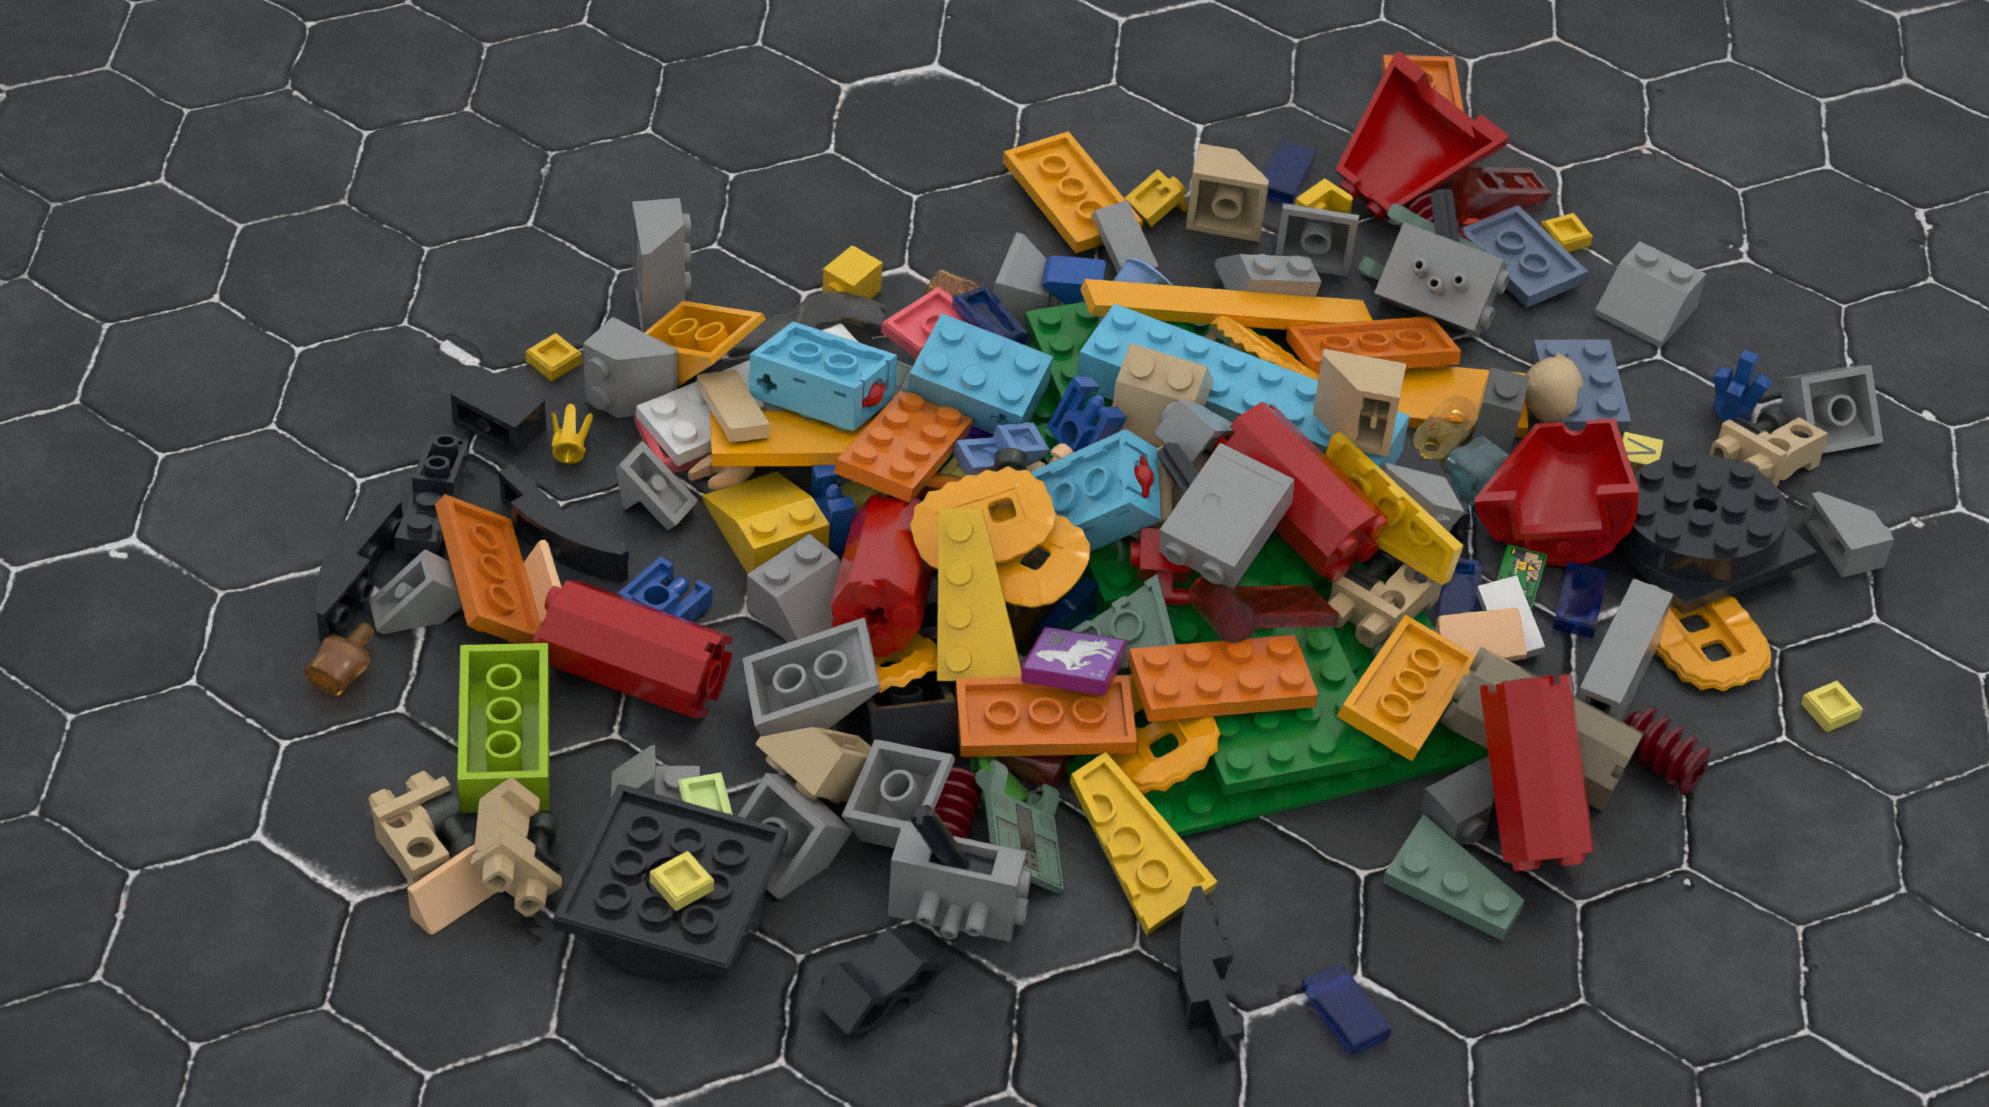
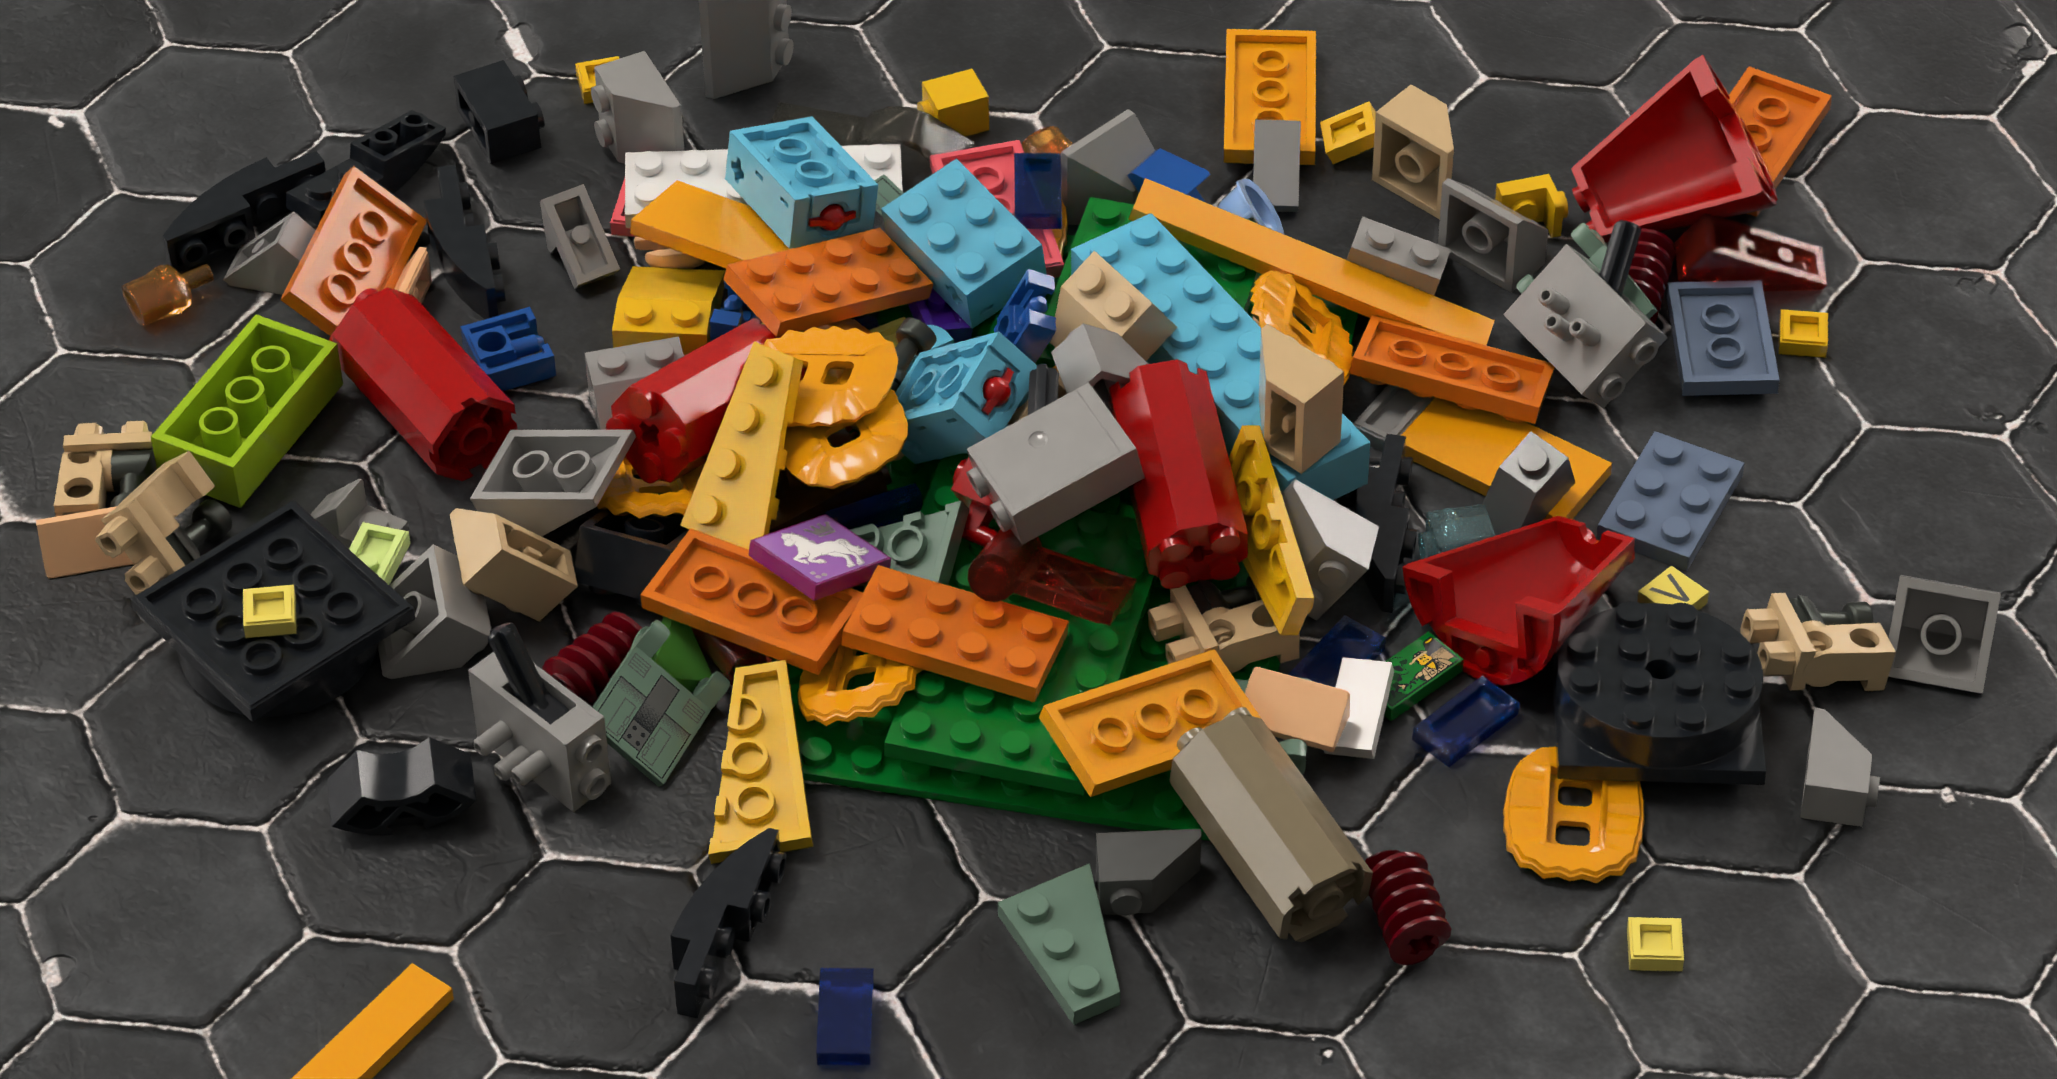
camera: 35 degrees right, 0 degrees up
(566, 443) = (542, 165): yellow piece -> none
(703, 334) = (725, 103): light orange slope -> none
(733, 406) = (694, 183): tan tile -> none
(892, 787) = (551, 609): light grey slope -> none
(978, 454) = (948, 319): medium blue slope -> none
(1288, 170) = (1534, 154): clear blue tile -> none
(1442, 432) = (1454, 483): clear yellow plate -> none
(1537, 771) = (1196, 856): red brick -> none
(1553, 388) = (1610, 480): tan hair -> none
(1626, 649) = (1426, 787): light grey brick -> none
(1651, 294) = (1834, 432): light grey slope -> none
(1739, 395) = (1840, 566): blue rock -> none

